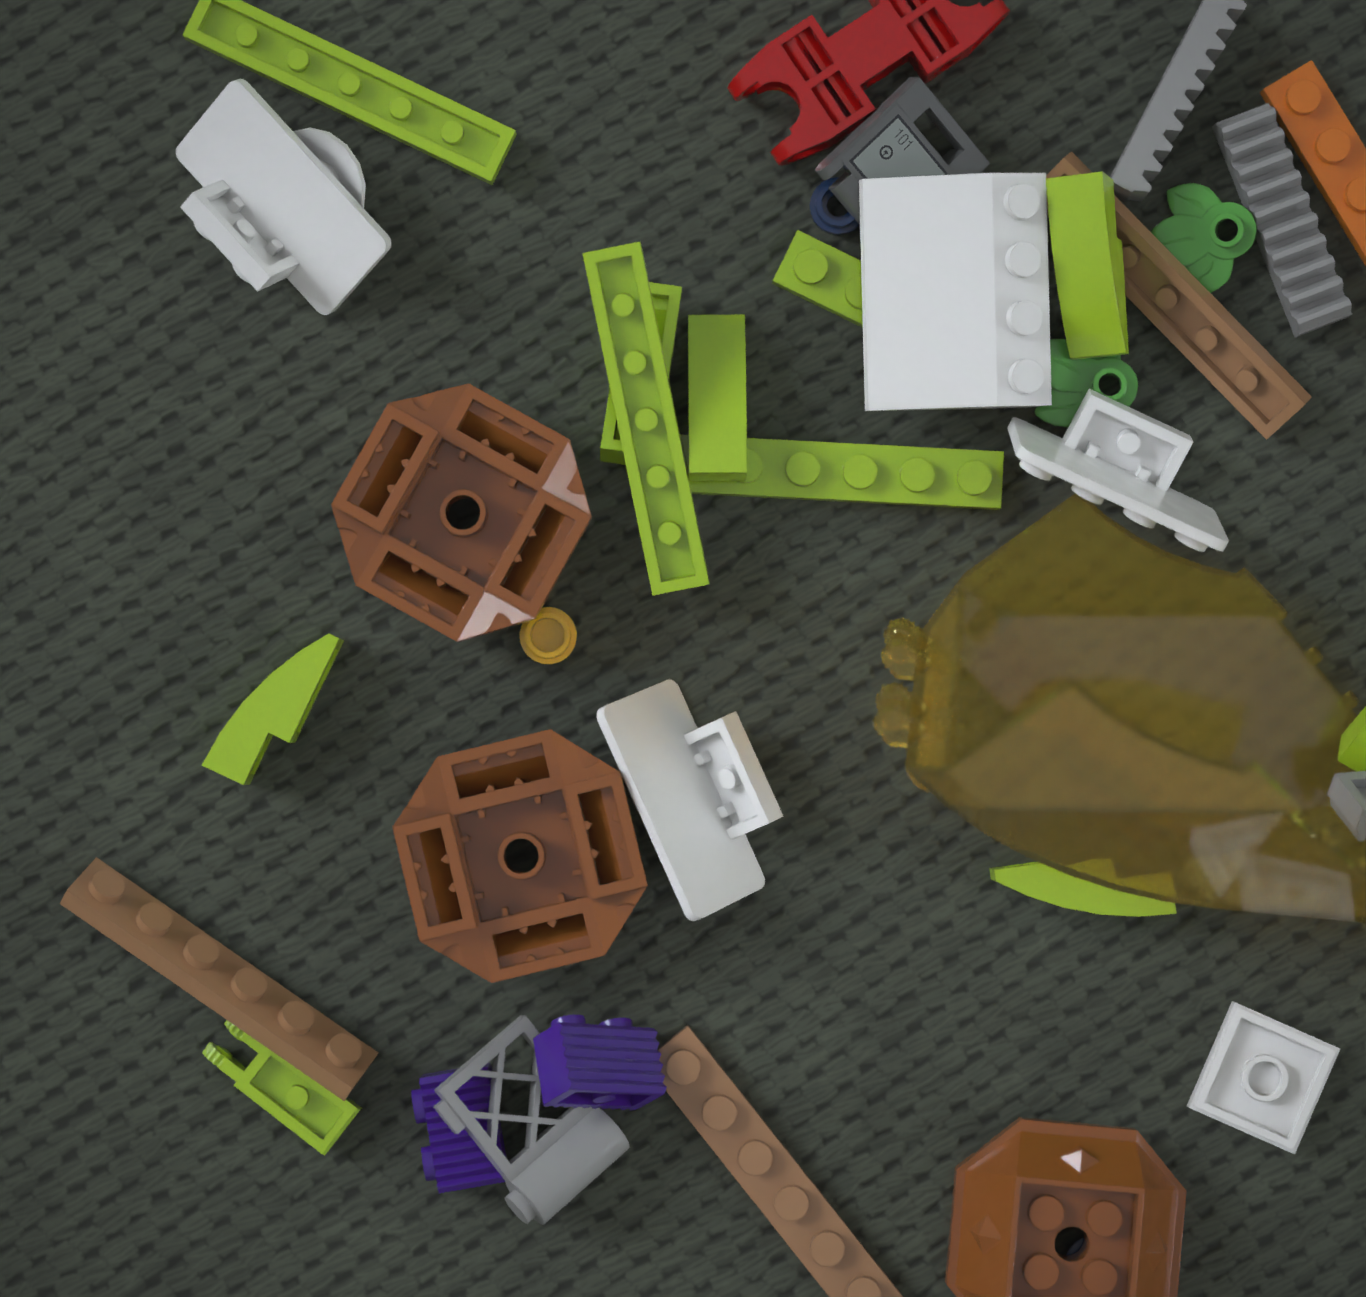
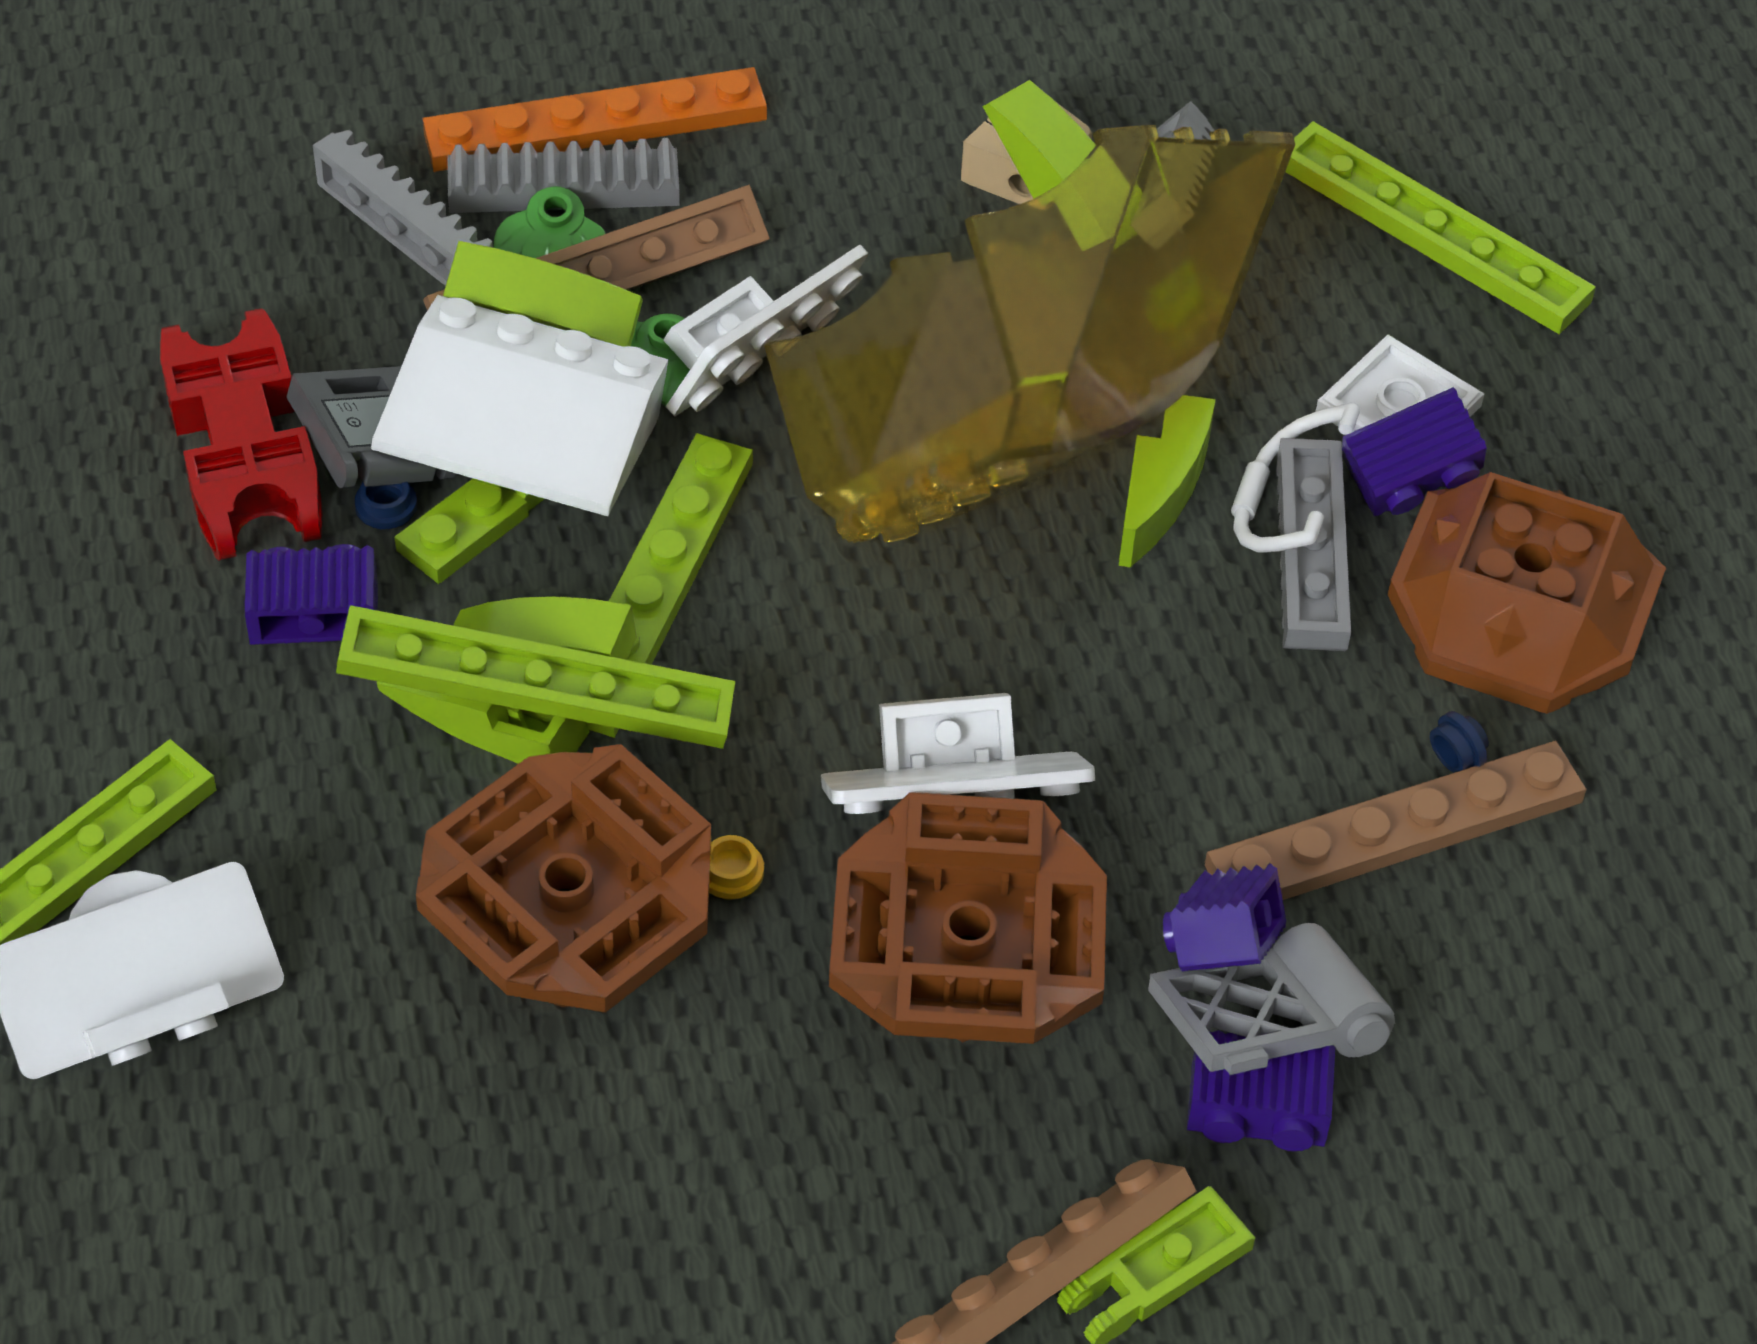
camera: 75 degrees left, 35 degrees down
(273, 709) = (717, 1149): lime slope -> none
(707, 184) = (306, 592): none -> dark purple brick
(871, 1216) = (1459, 742): none -> dark blue plate
(1056, 1038) = (1316, 574): none -> light grey gear
(1112, 966) = (1257, 474): none -> white piece
(1178, 1109) = (1414, 453): none -> dark purple brick

